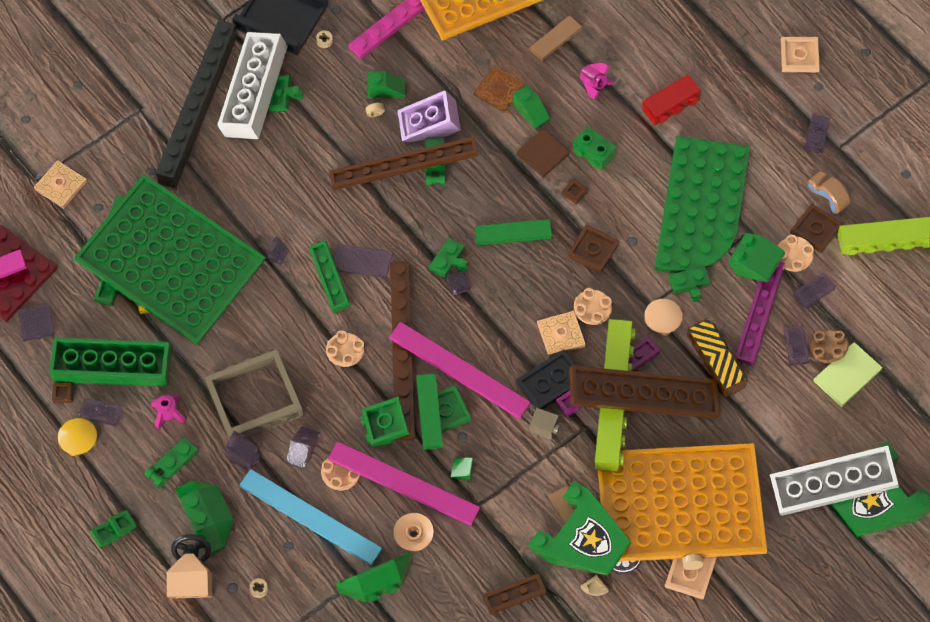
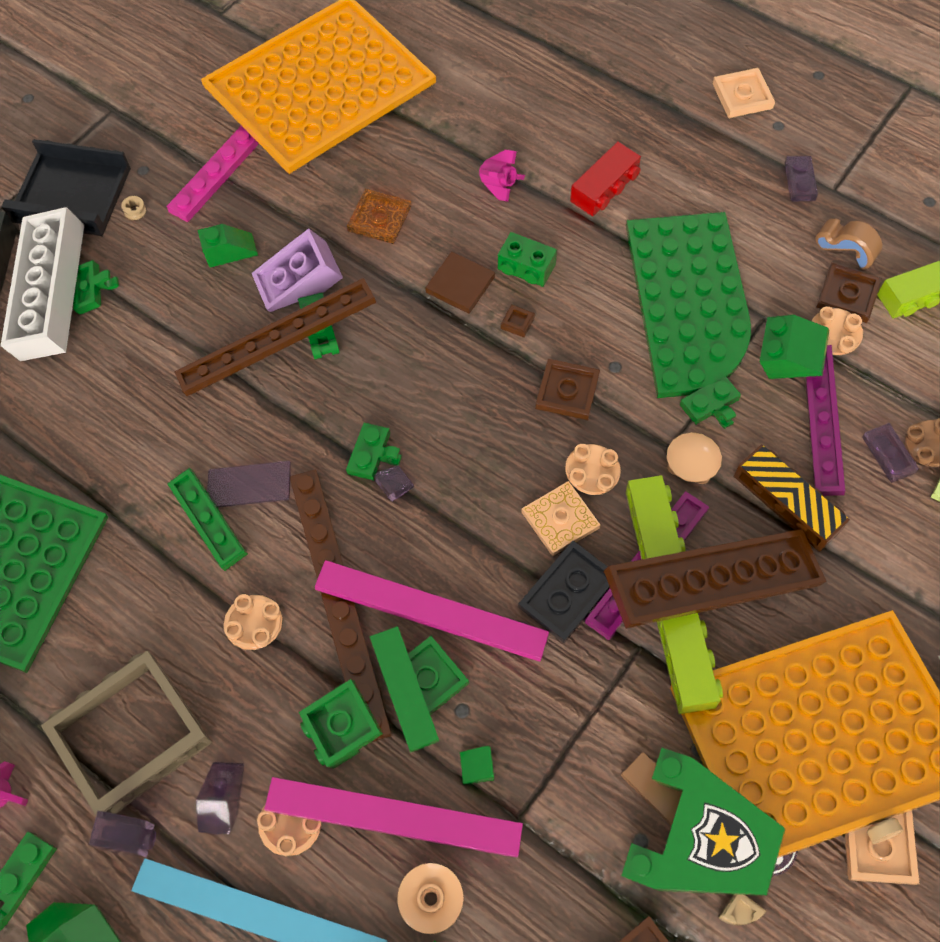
camera: 15 degrees left, 0 degrees up
(277, 251) = (122, 500): slope -> none
(375, 109) = (220, 278): tan tile -> none
(513, 232) = (450, 393): green tile -> none
(530, 106) = (426, 227): green slope -> none
(544, 424) = (581, 660): dark tan brick -> none
(555, 38) = (433, 141): medium nougat tile -> none
(814, 290) = (882, 372): clear purple plate -> none

